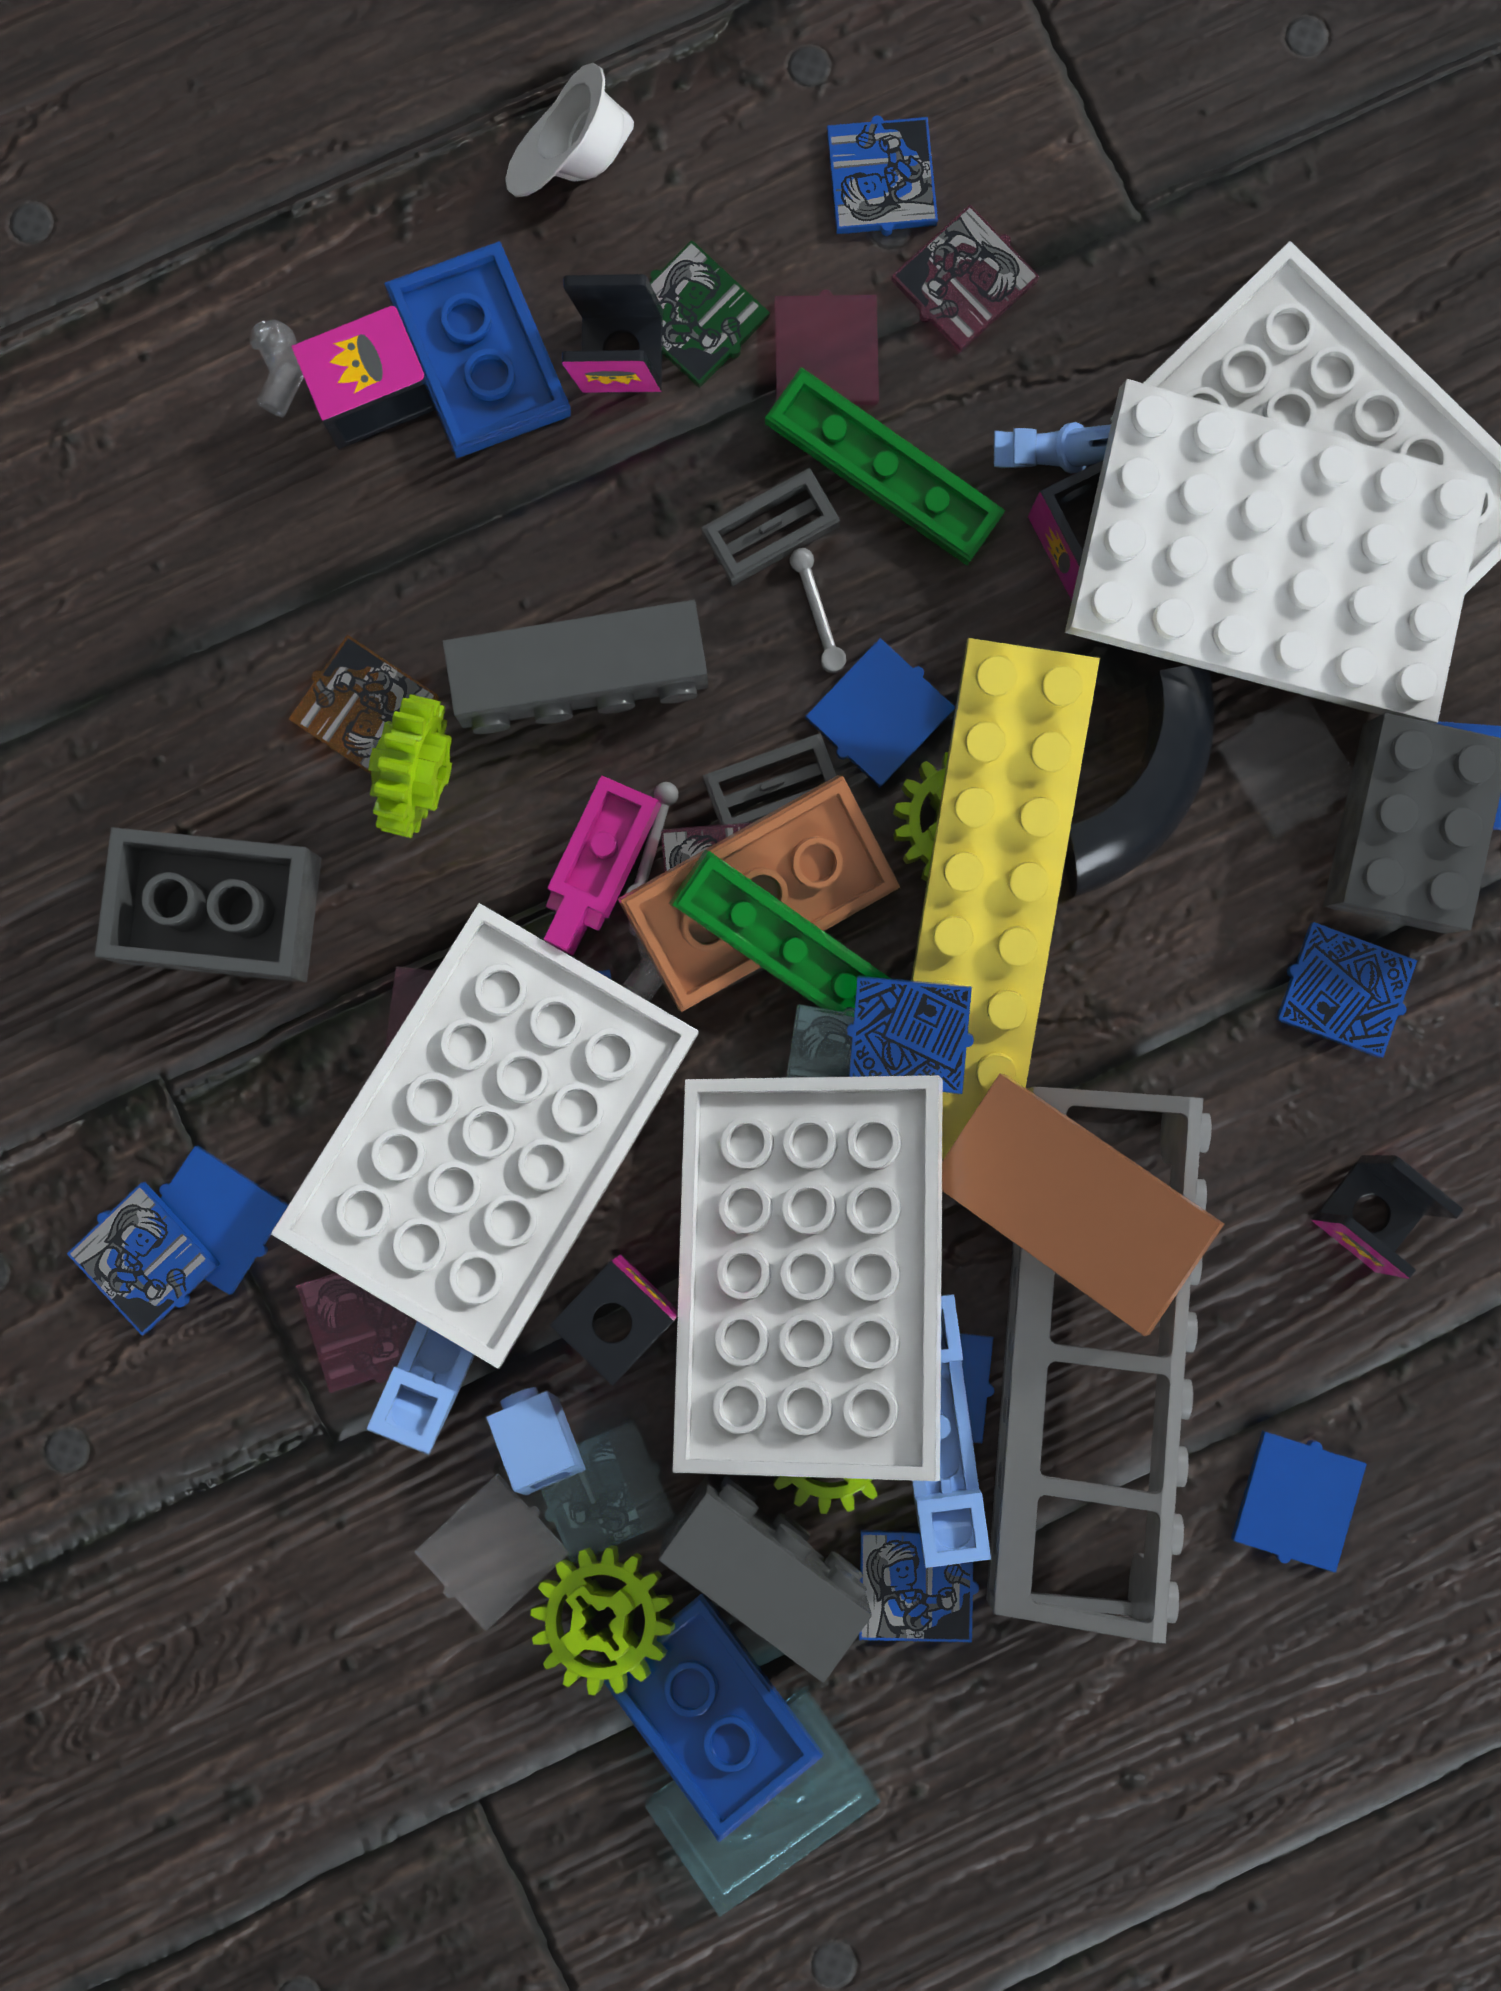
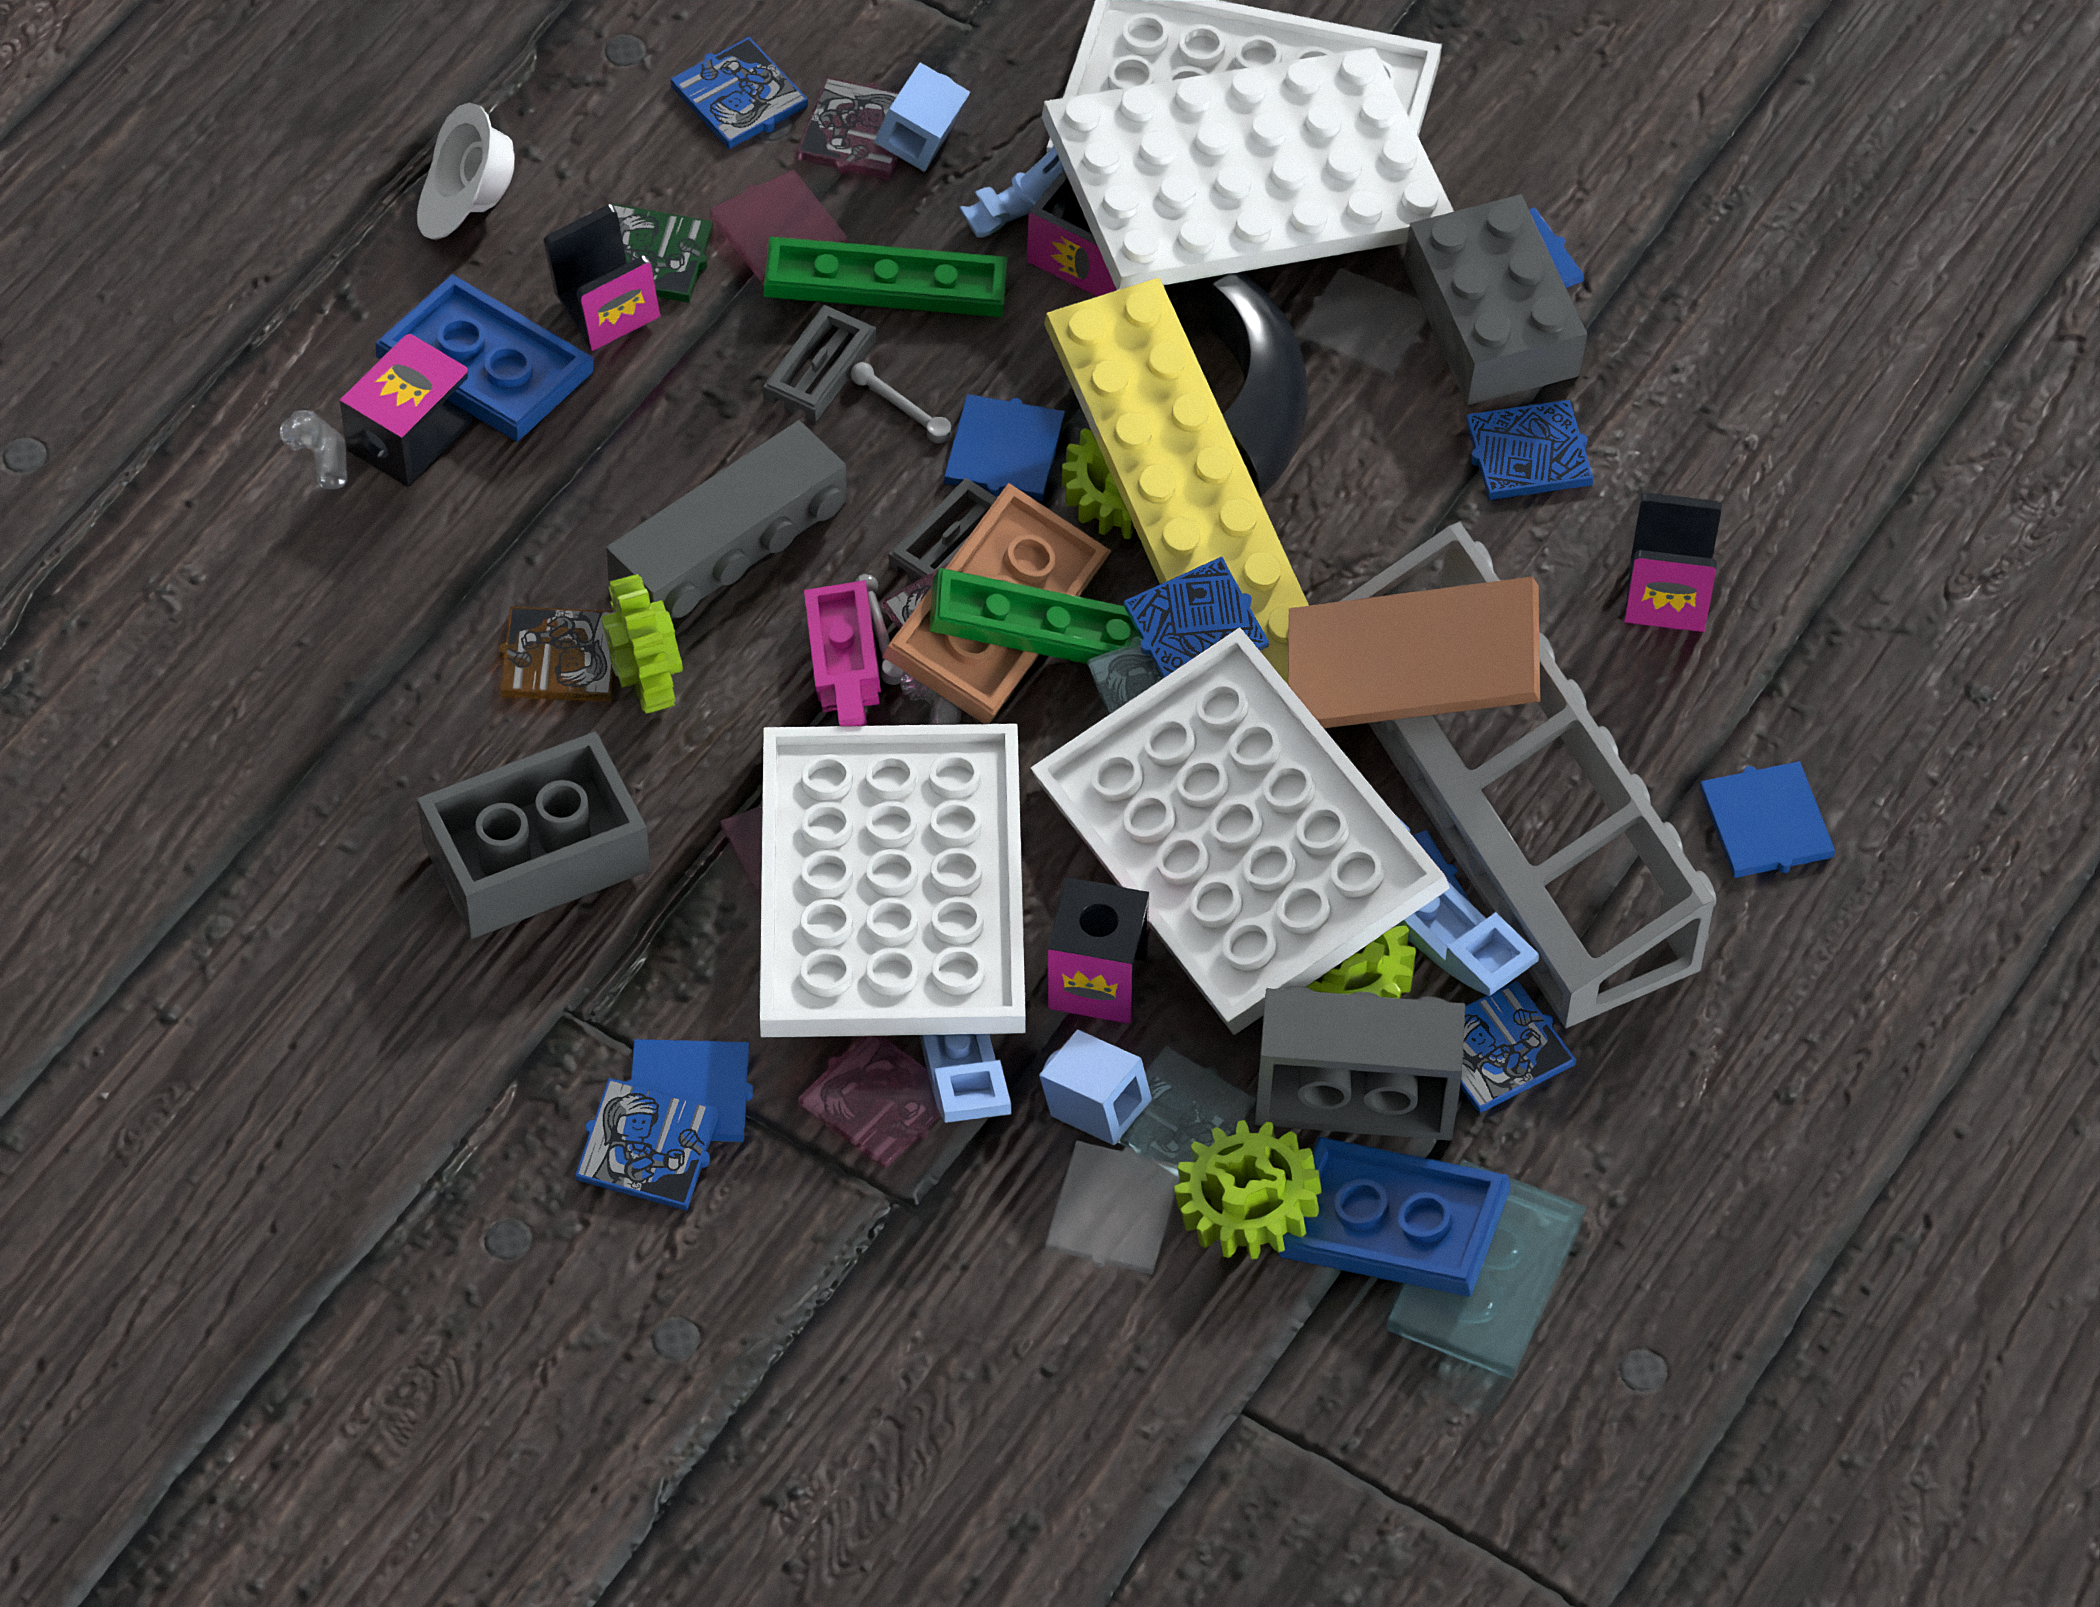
camera: 30 degrees left, 30 degrees down
(1023, 309) = (922, 116): none -> light blue brick

